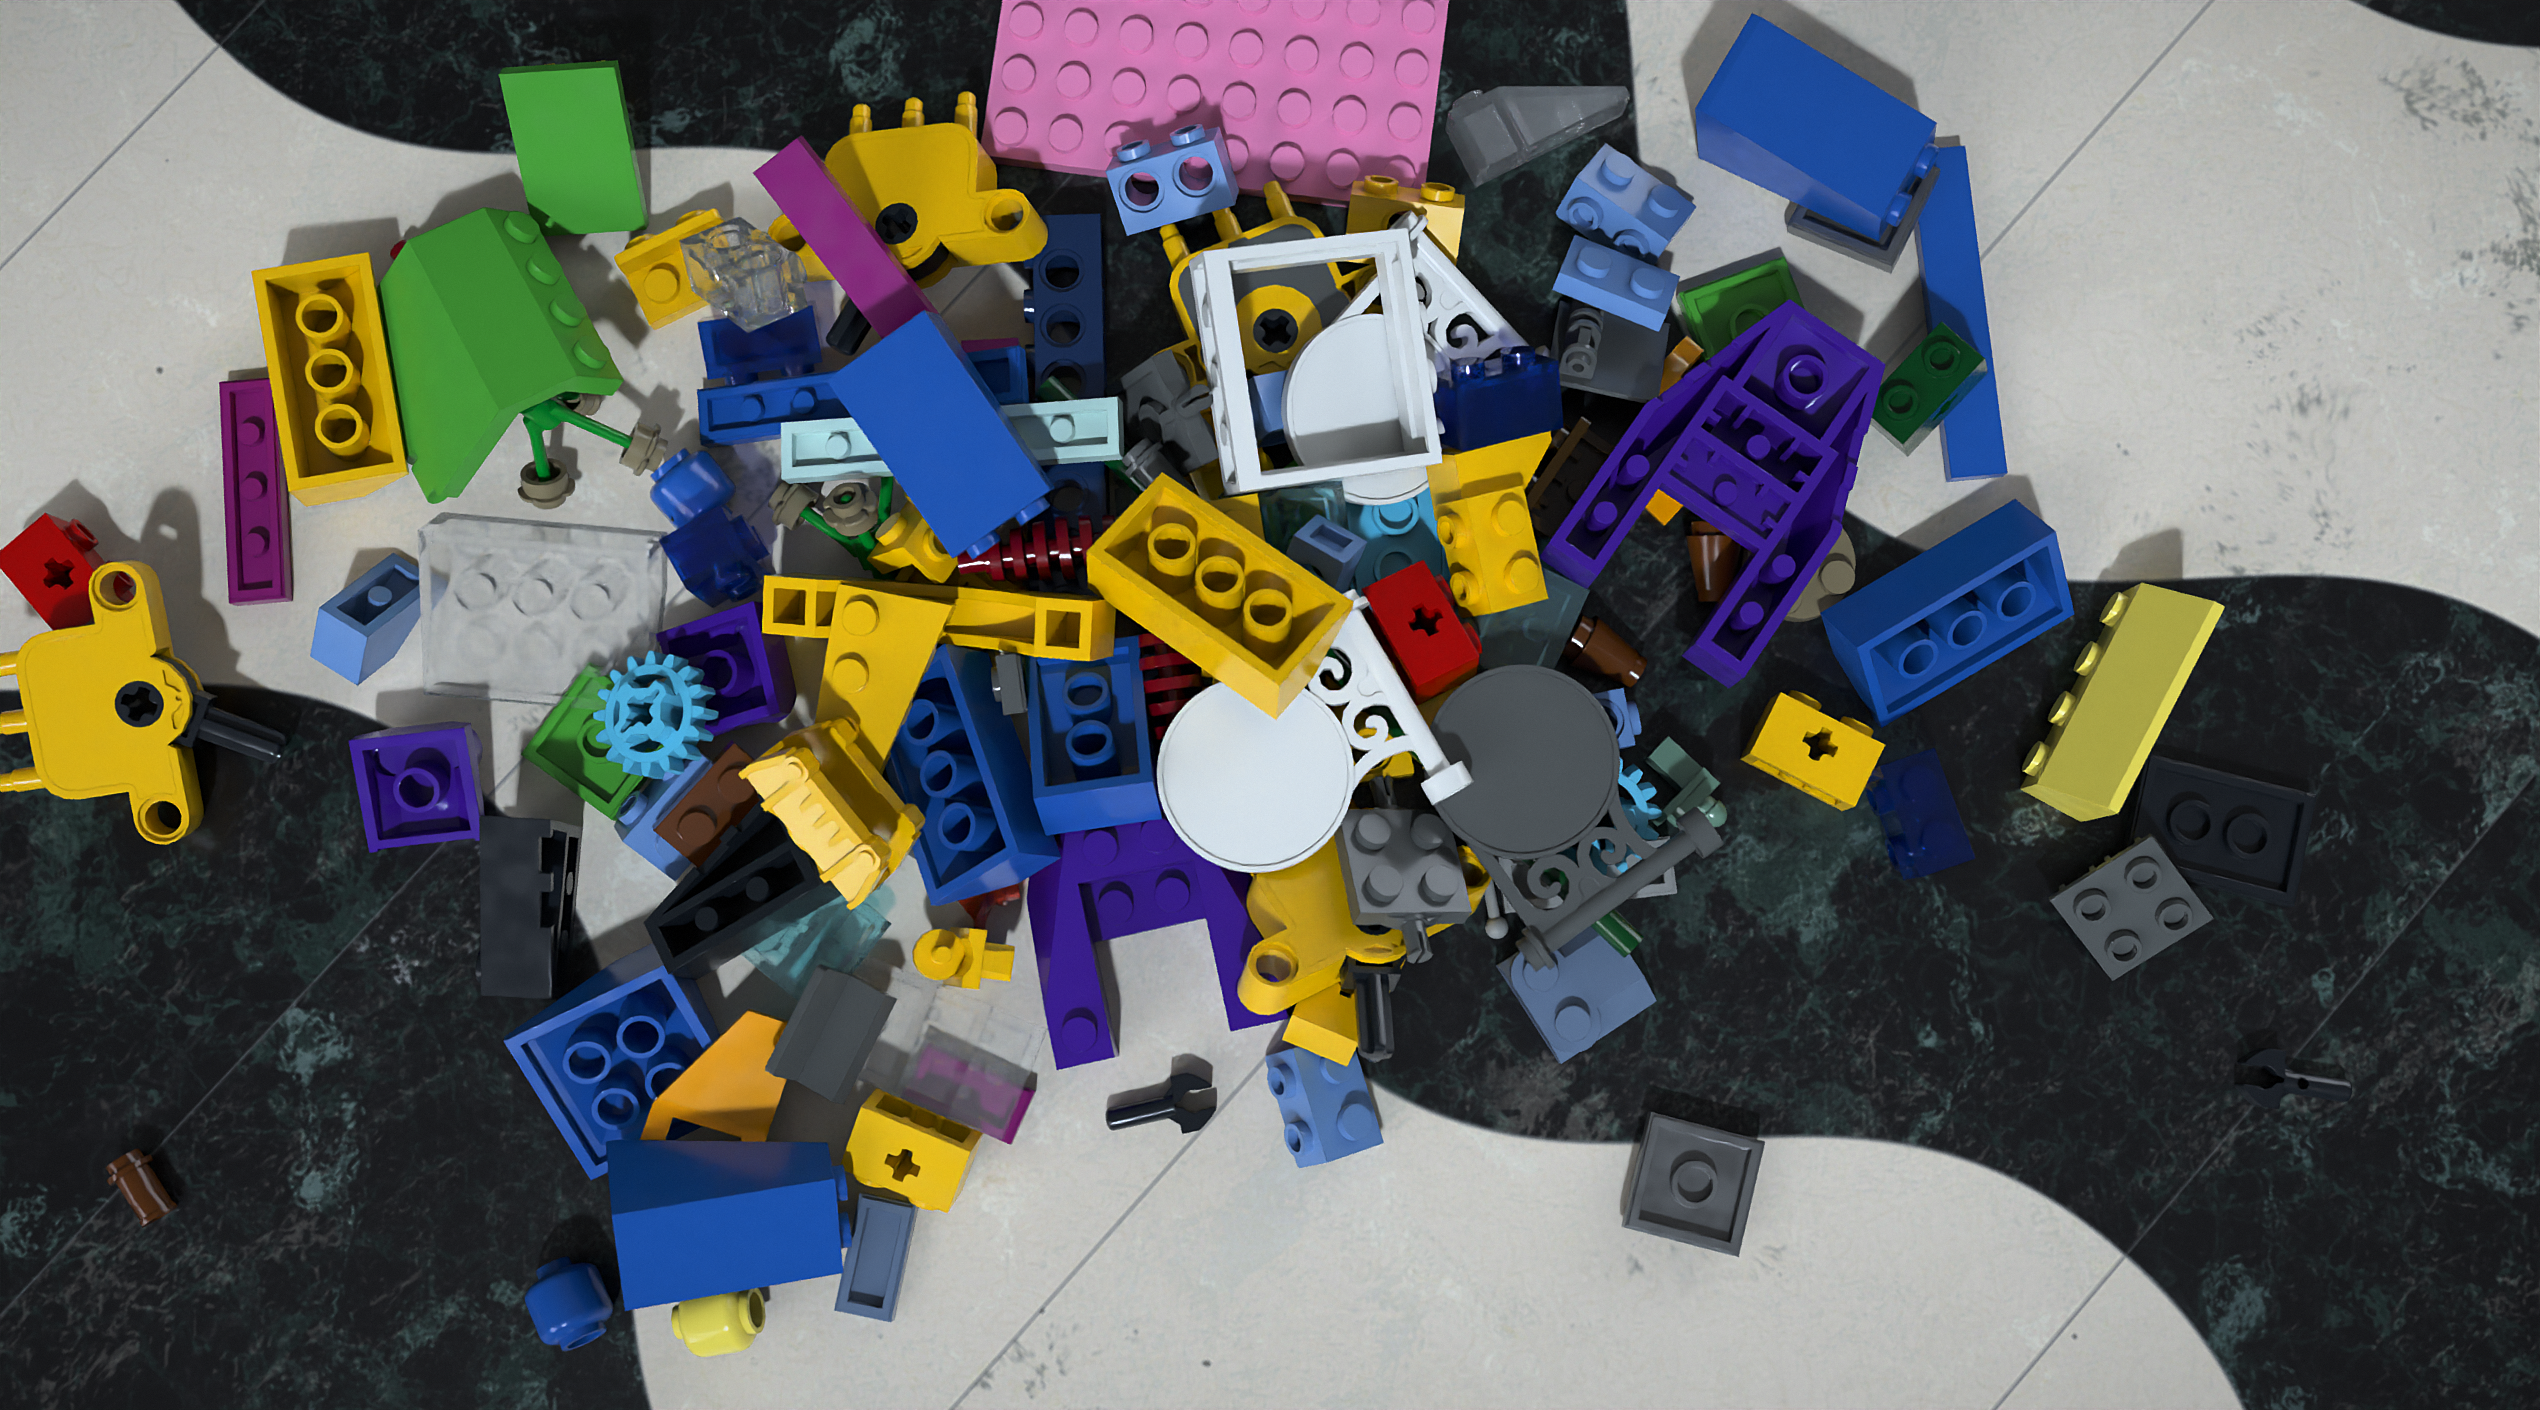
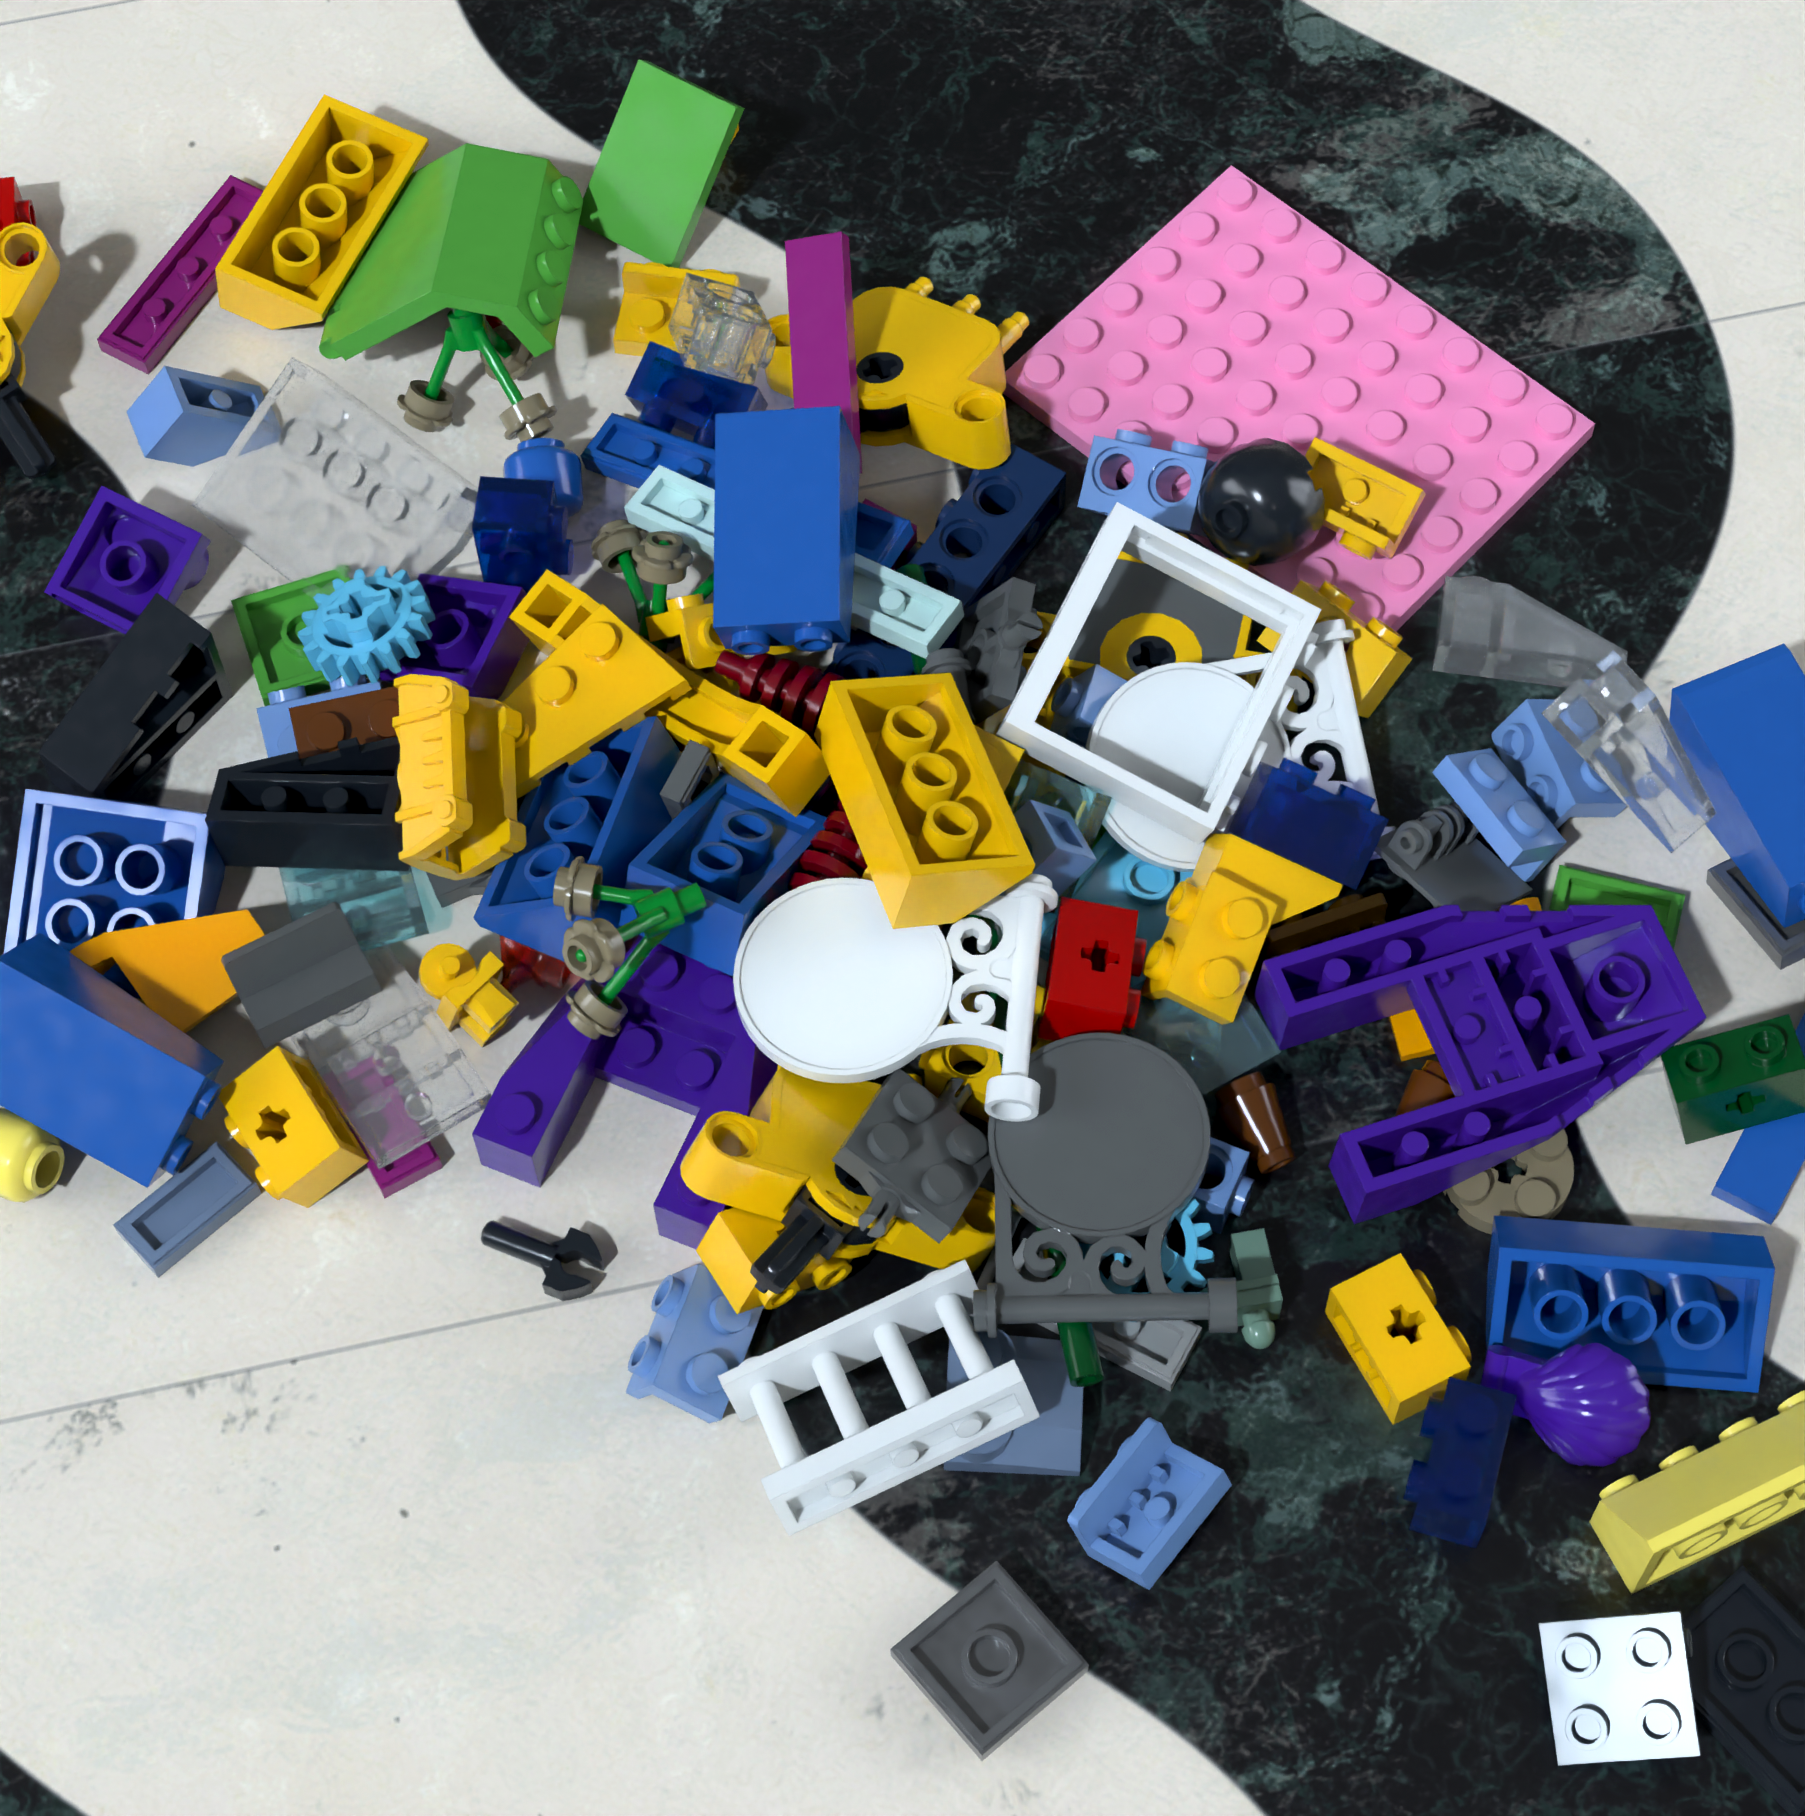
camera: 35 degrees right, 20 degrees down
(1078, 903) = (597, 948): none -> dark tan plant
(1277, 149) = (1260, 503): none -> black cylinder
(1335, 93) = (1362, 500): none -> yellow bracket
(1521, 1112) = (896, 1448): none -> white fence
(1678, 165) = (1634, 749): none -> clear slope
(1726, 997) = (1146, 1504): none -> medium blue bracket
(1966, 716) = (1579, 1402): none -> dark purple animal

